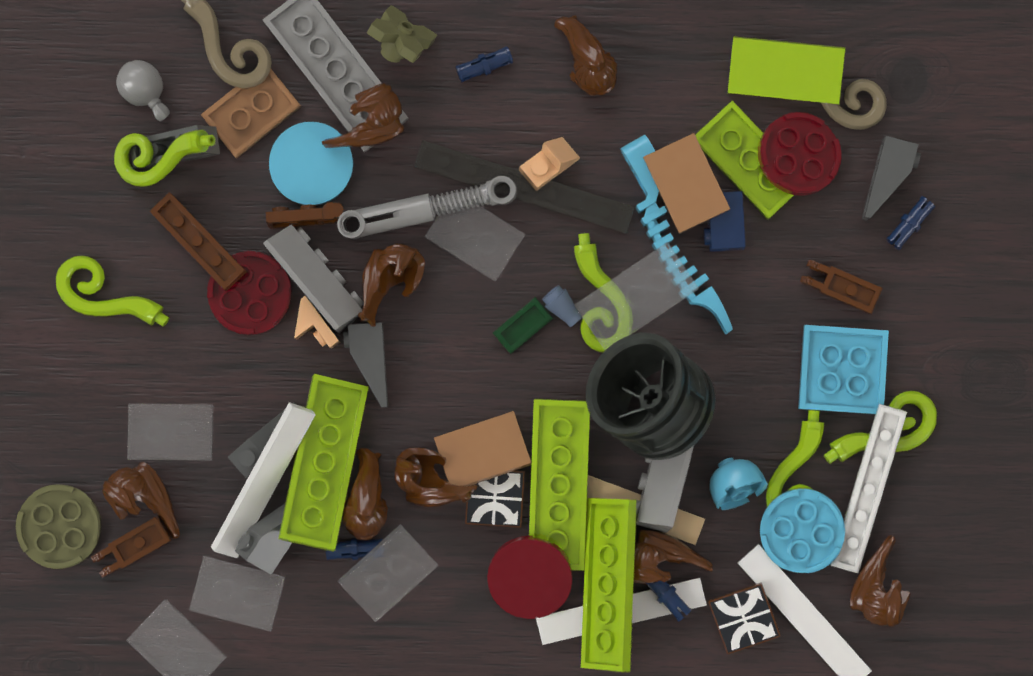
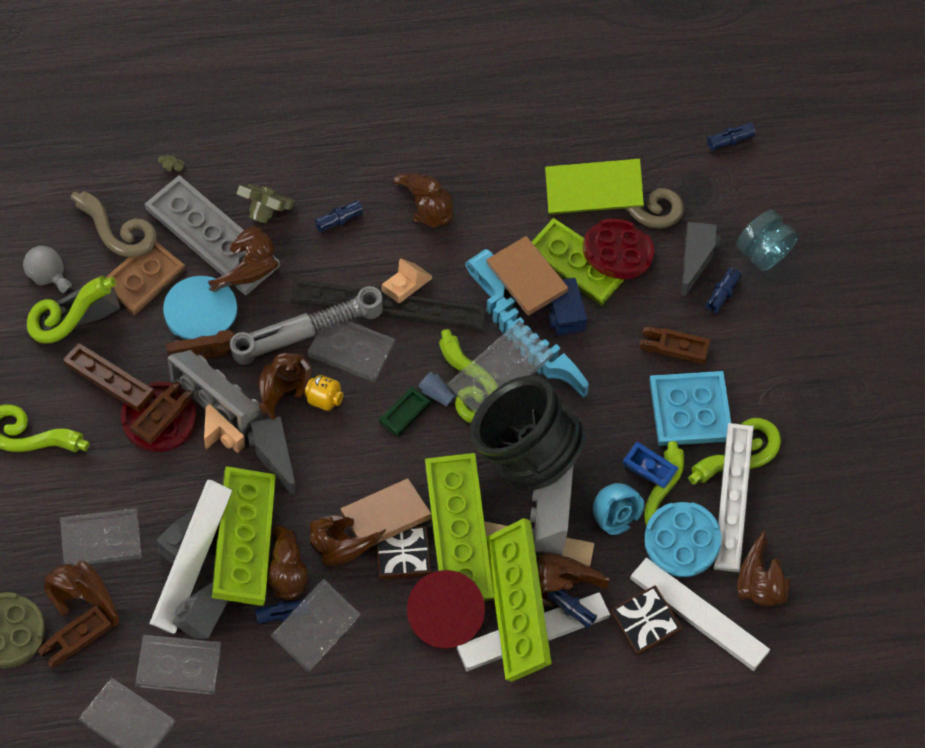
camera: 10 degrees left, 25 degrees down
(250, 297) = (161, 413): none -> reddish brown hinge
(435, 294) = (323, 392): none -> yellow head
(783, 437) = (649, 465): none -> blue slope
(945, 22) = (731, 136): none -> dark blue pin
(973, 174) = (767, 240): none -> clear light blue wheel

